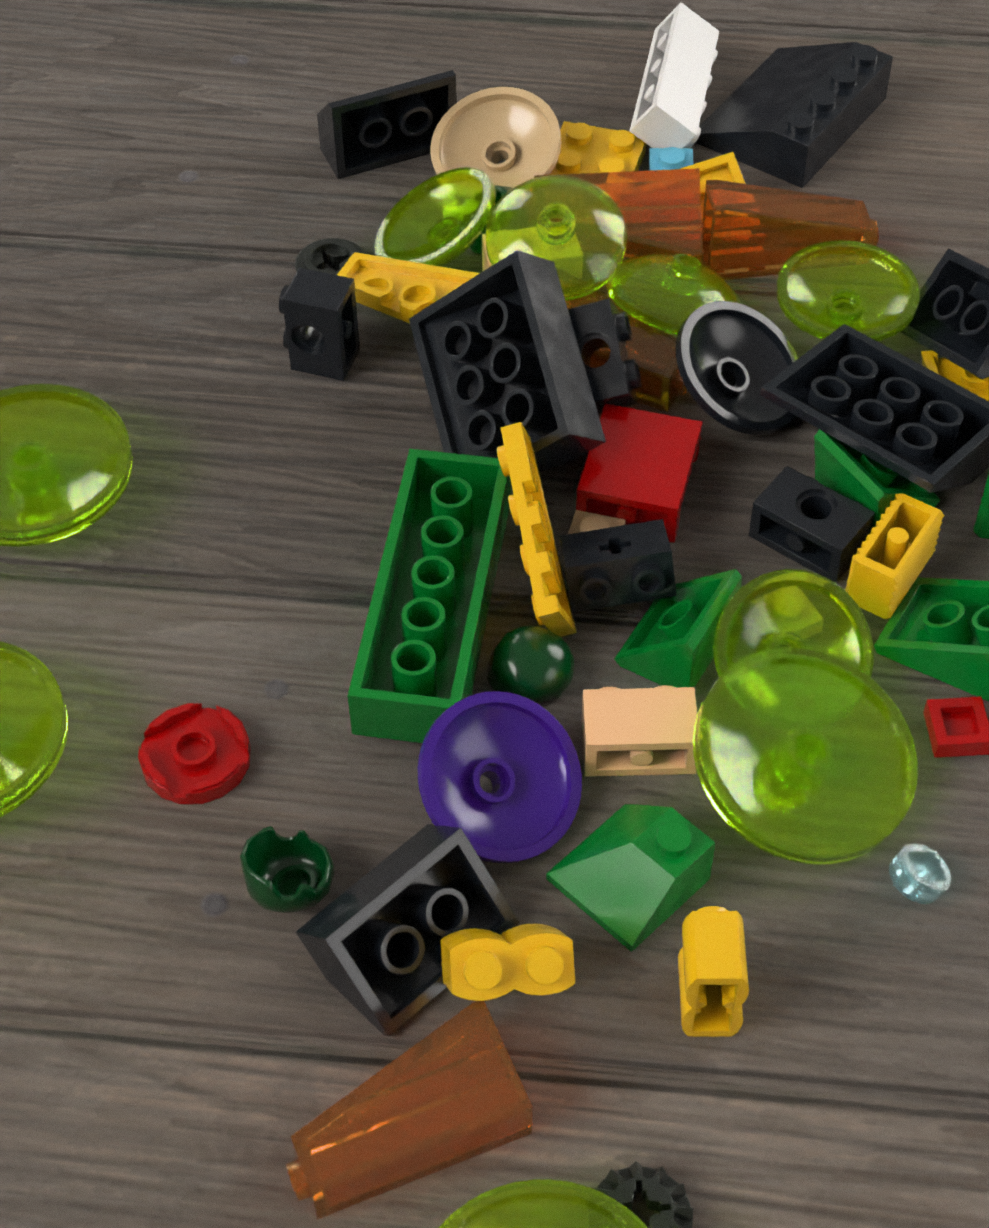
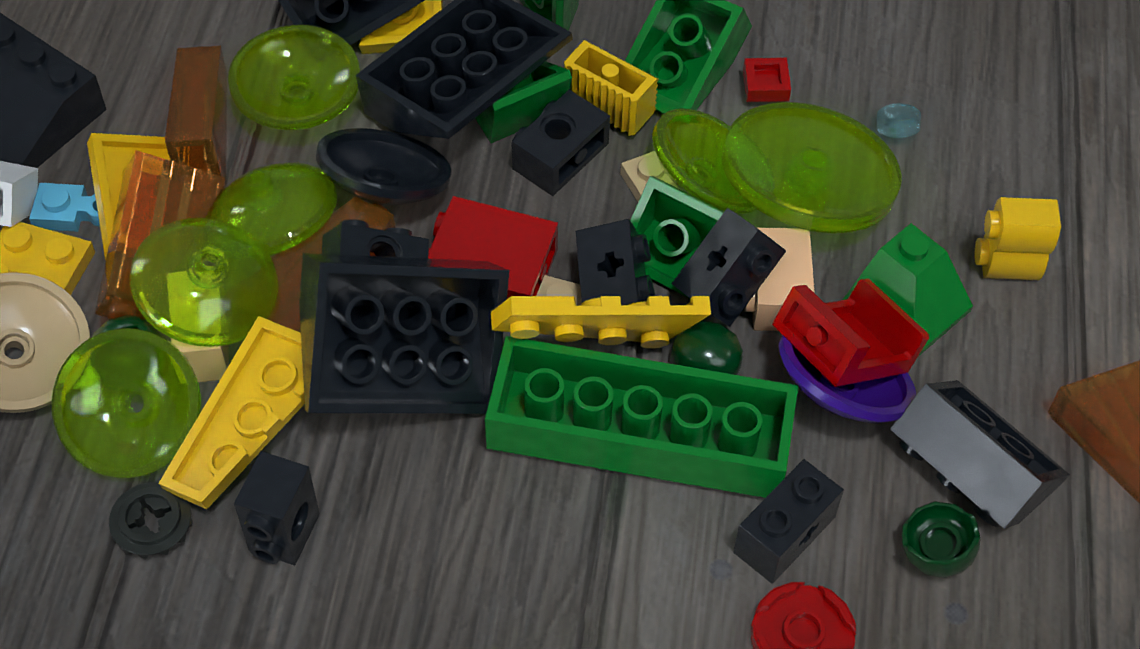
camera: 90 degrees left, 5 degrees up
(313, 726) = (787, 521): none -> black brick
(523, 958) = (1019, 374): yellow brick -> none
(539, 773) = (851, 337): none -> red panel
(628, 657) = (729, 266): none -> black brick

